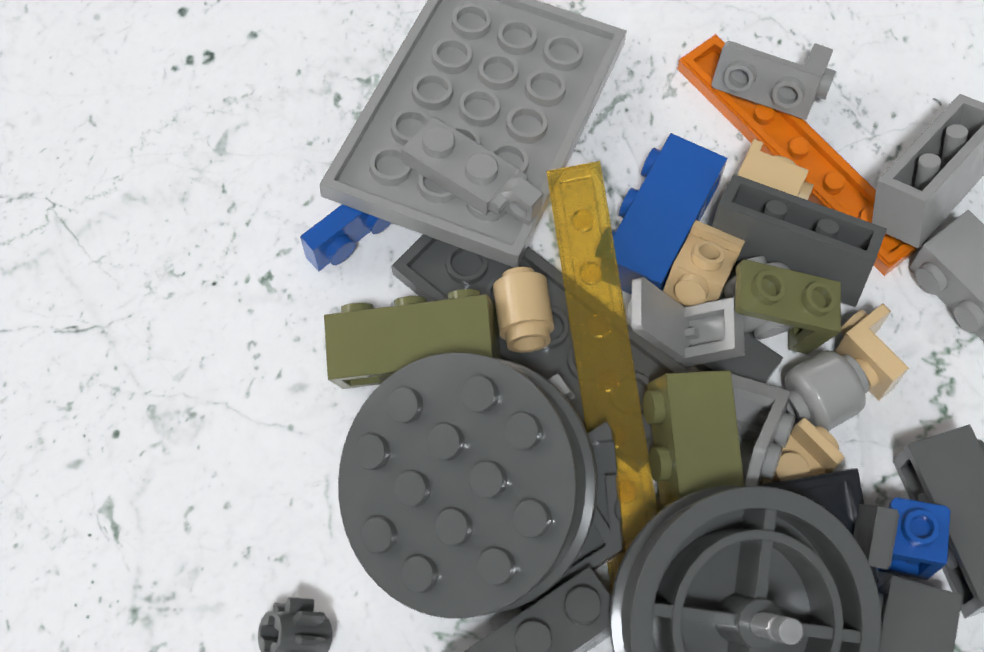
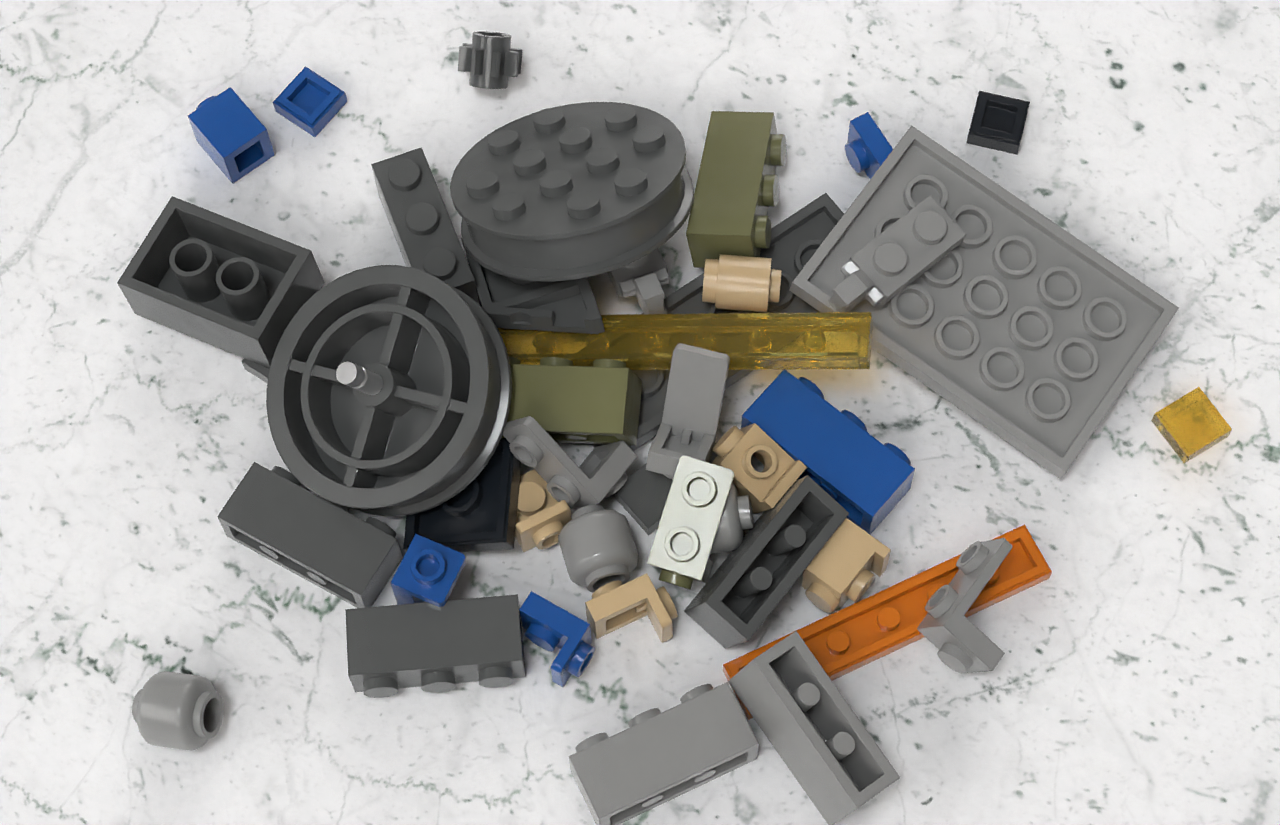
camera: 105 degrees right, 0 degrees up
(273, 142) = (998, 122): none -> black tile
(876, 533) = (435, 527): dark grey tile -> none
(917, 408) = (555, 627): none -> blue bracket

